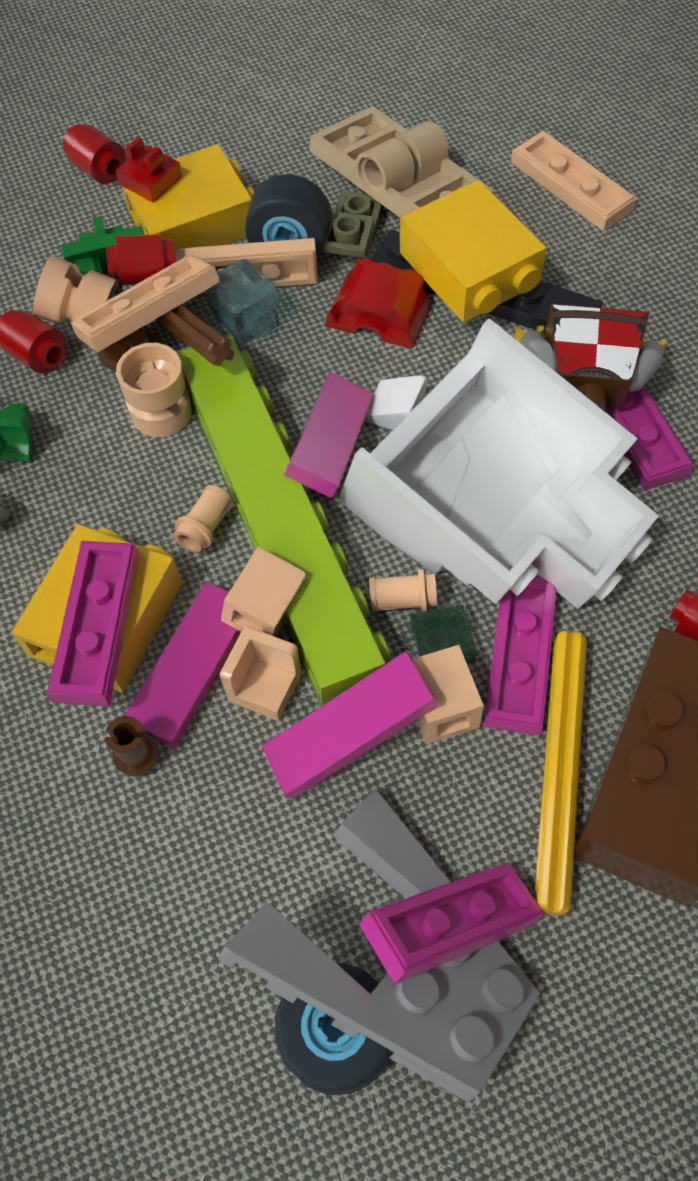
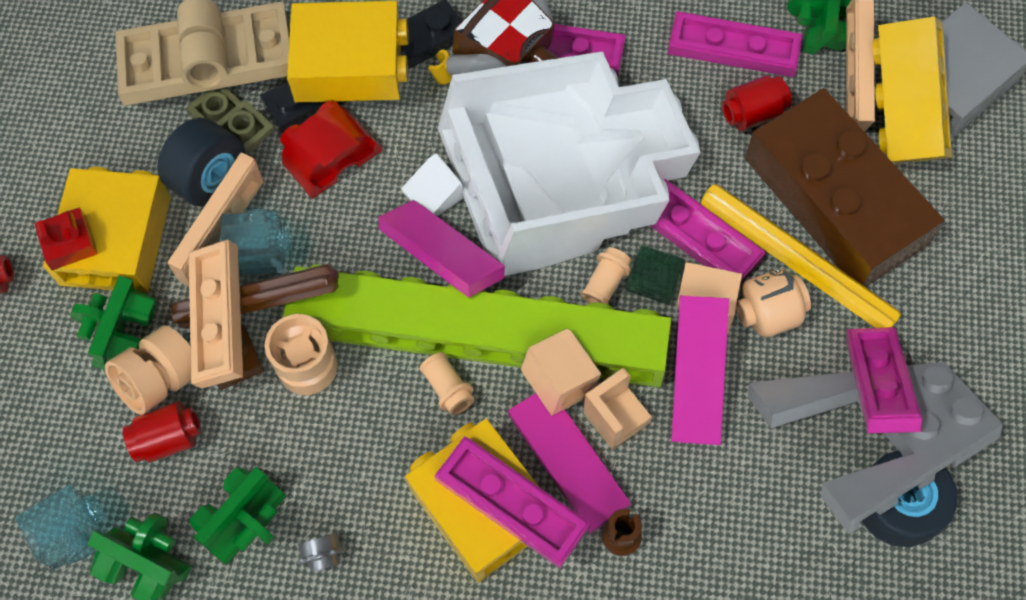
camera: 60 degrees left, 5 degrees up
(139, 257) = (159, 294): red brick -> none
(479, 761) = (773, 303): none -> light nougat head

